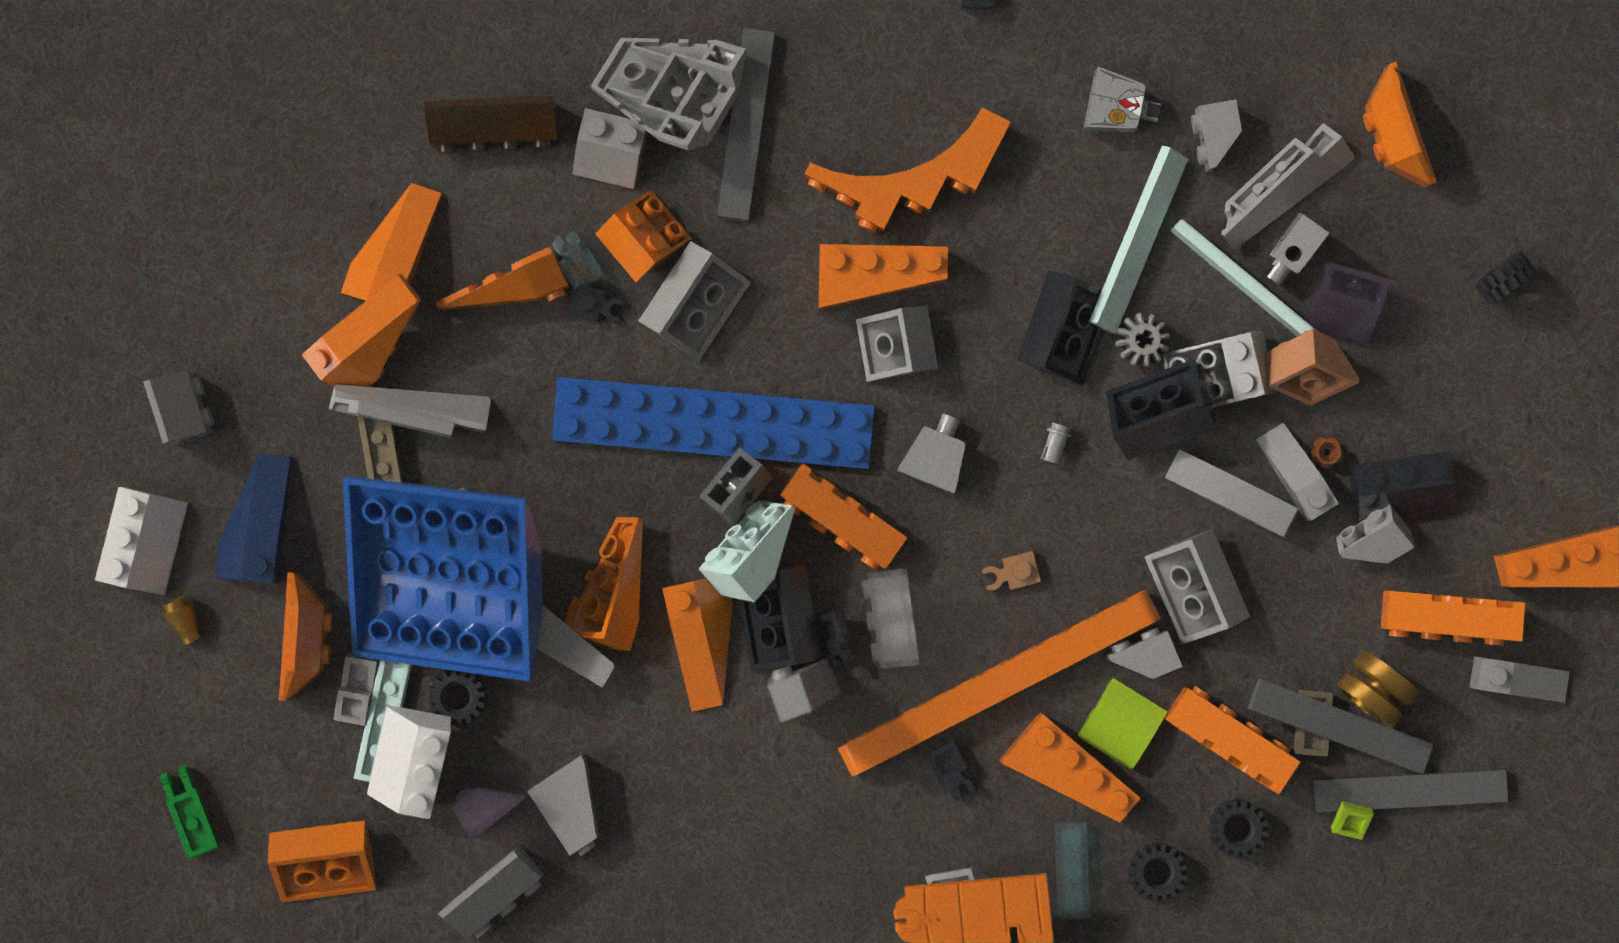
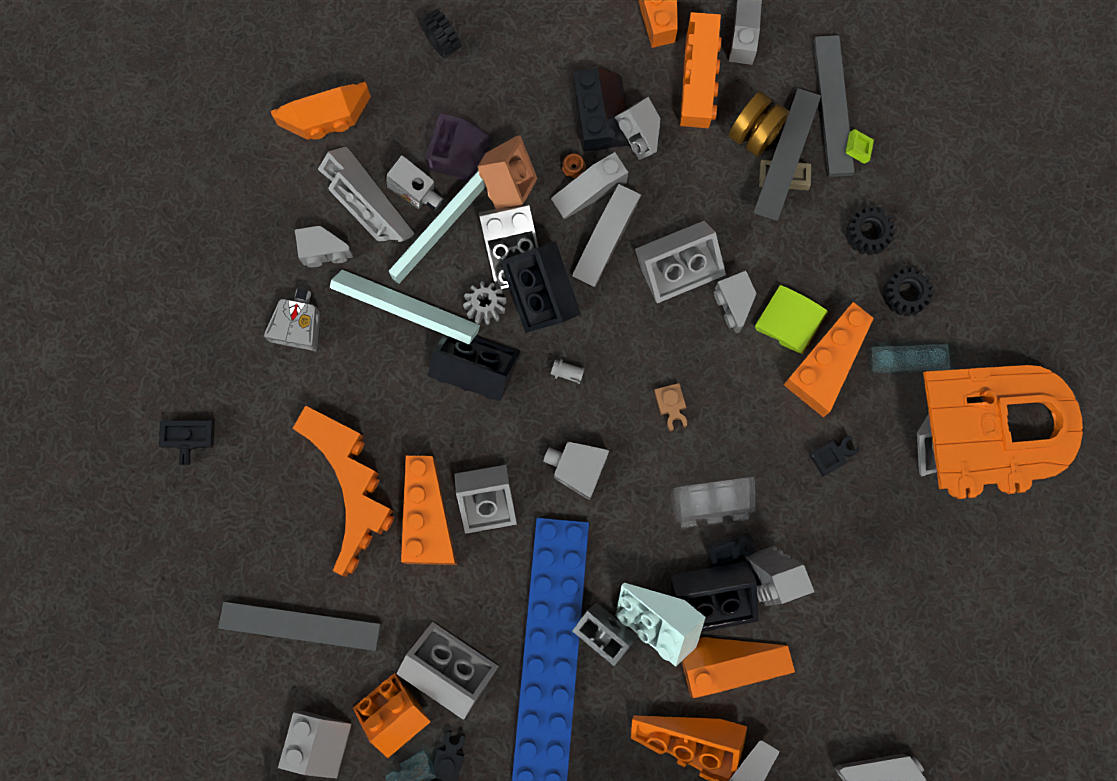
camera: 85 degrees left, 10 degrees down
(673, 88) = (265, 689): light grey wedge -> none
(843, 518) = (629, 543): orange wedge -> none
(999, 683) = (764, 419): orange beam -> none
(1232, 740) = (802, 232): orange wedge -> none

